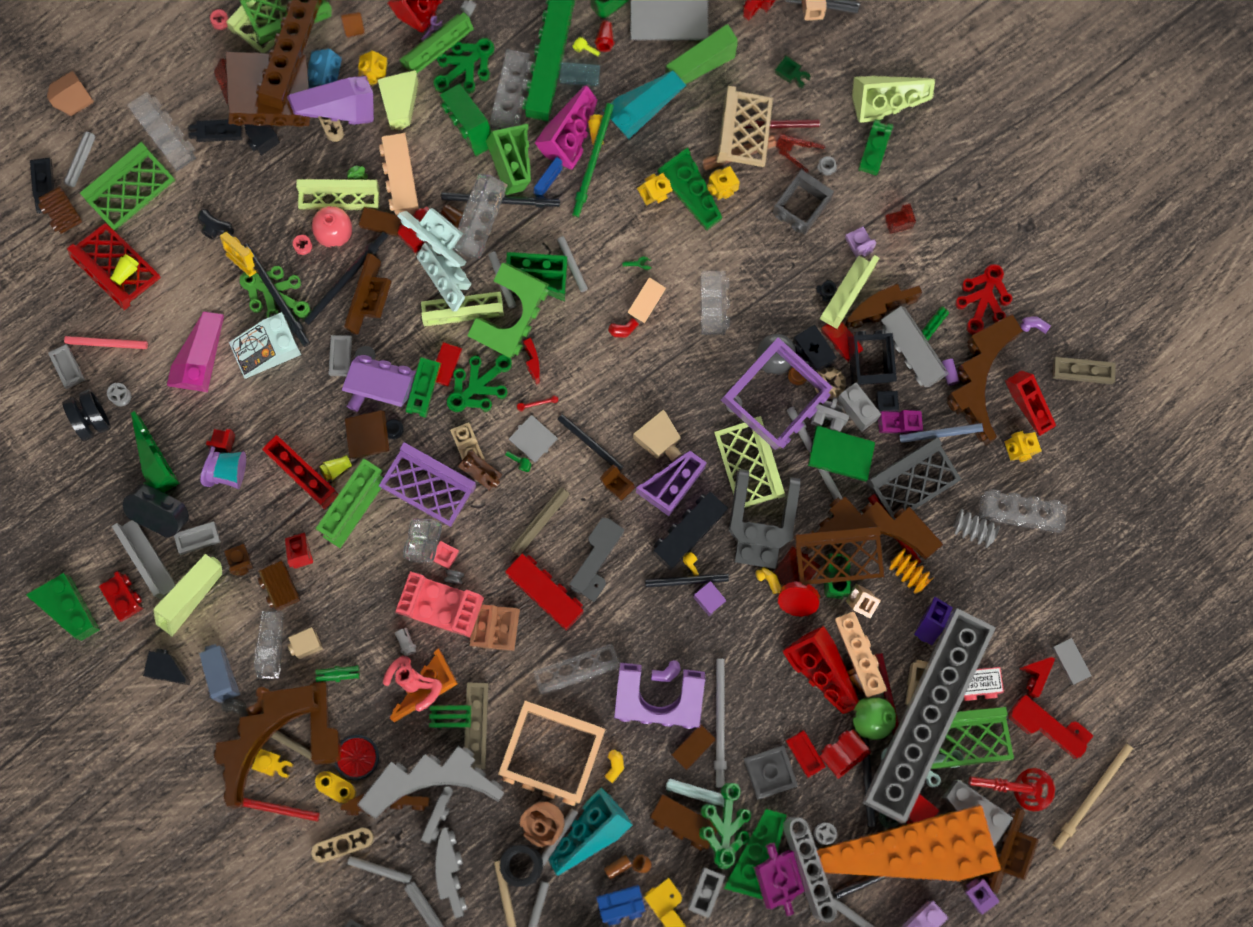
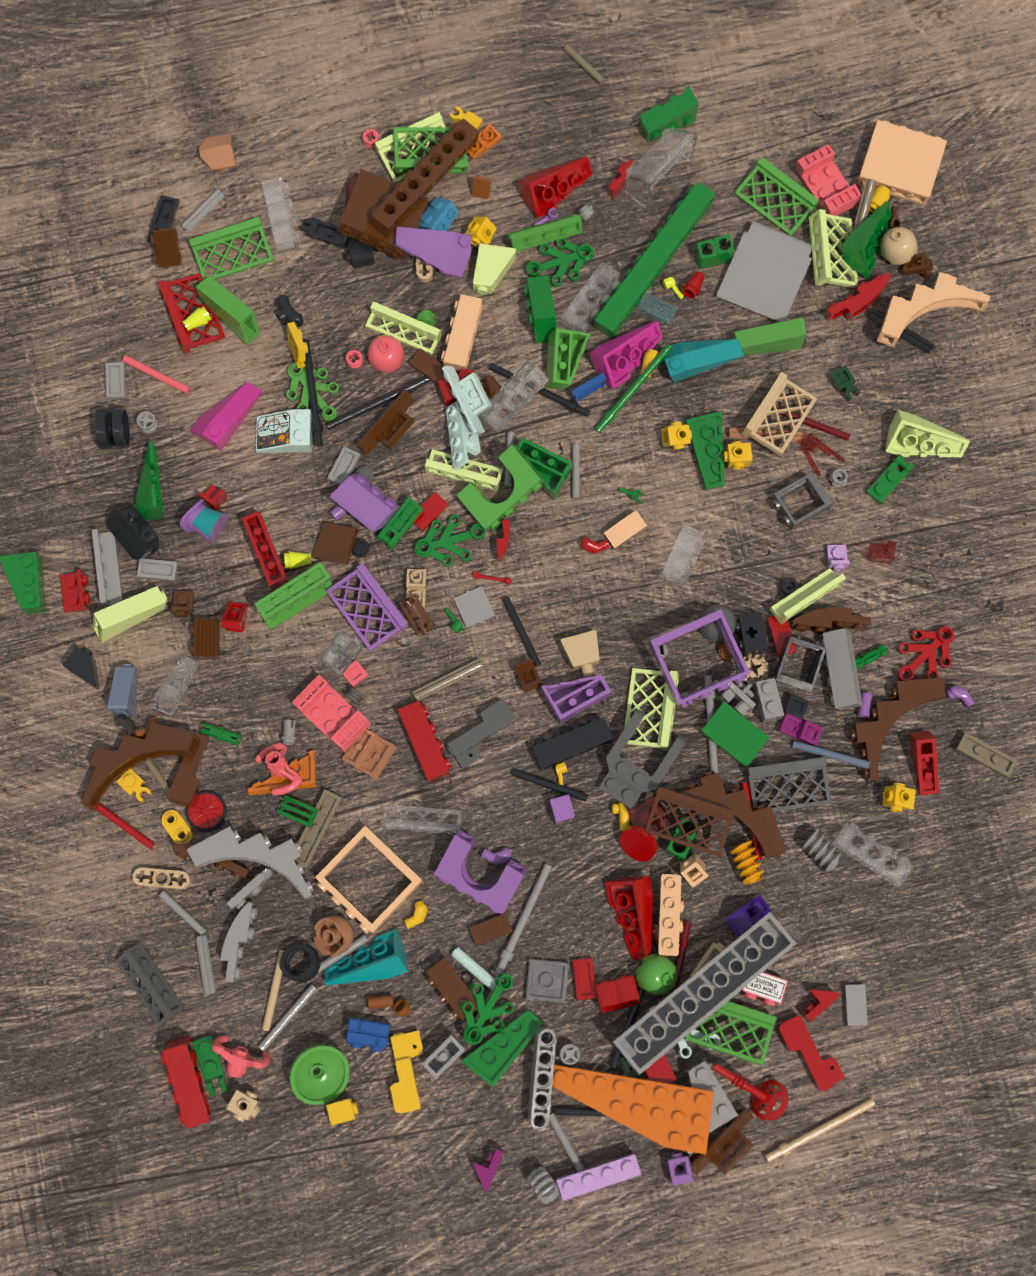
camera: 30 degrees right, 0 degrees up
(152, 246) = (229, 309): none -> bright green slope
(304, 643) = (205, 696): tan brick -> none
(779, 879) = (511, 1075): magenta plate -> none

